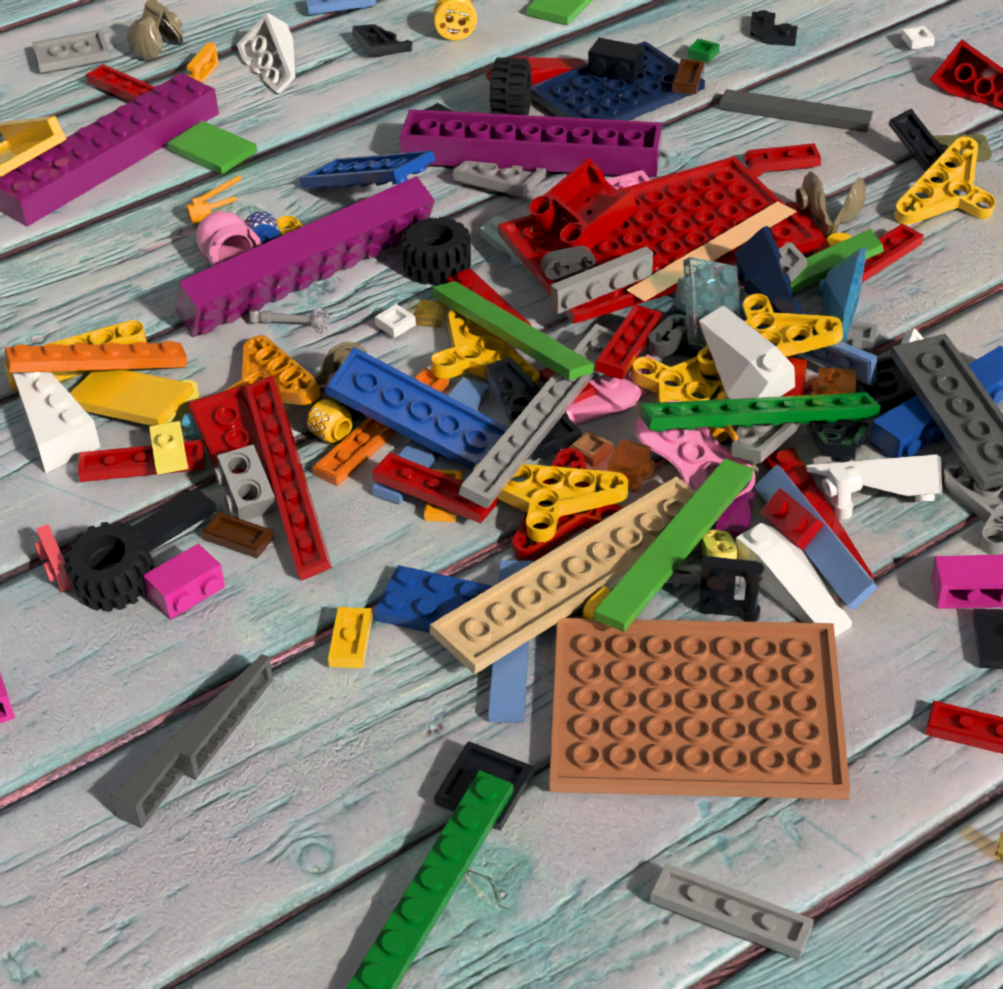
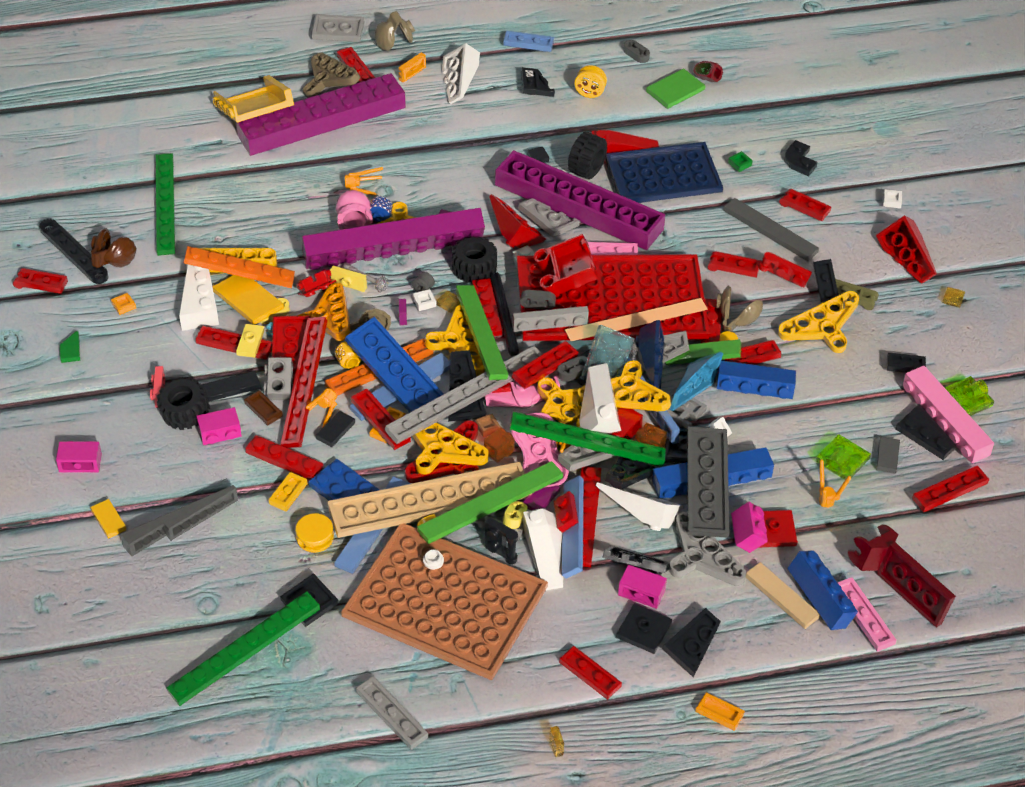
camera: 20 degrees right, 5 degrees up
(71, 782) = (108, 518): none -> yellow tile
(94, 96) = (329, 73): none -> dark tan beam
(212, 147) = (386, 133): bright green tile -> none
(215, 354) = (309, 286): none -> red hinge
(275, 326) = (349, 278): none -> light yellow plate
(311, 592) = (284, 457): none -> red plate
(332, 491) = (325, 399): none -> light orange plant
(368, 170) = (460, 189): blue plate -> none
(368, 526) = (335, 429): none -> black tile
(374, 342) = (402, 312): none -> magenta tile
(380, 298) = (423, 282): none -> dark grey wheel
(430, 681) = (314, 532): none -> yellow head
(466, 198) = (513, 226): none -> red wedge
(518, 302) = (504, 314): none -> black axle
(616, 59) = (671, 153): black brick -> none
(646, 651) = (433, 559): none -> white plate
(688, 76) = (712, 181): reddish brown tile -> none
(818, 72) = (805, 204): none -> red plate
(838, 489) = (606, 502): white plate -> none
(855, 142) = (784, 269): none -> red plate
(904, 551) = (635, 559): none -> black wing
(919, 274) = (756, 380): none -> blue brick

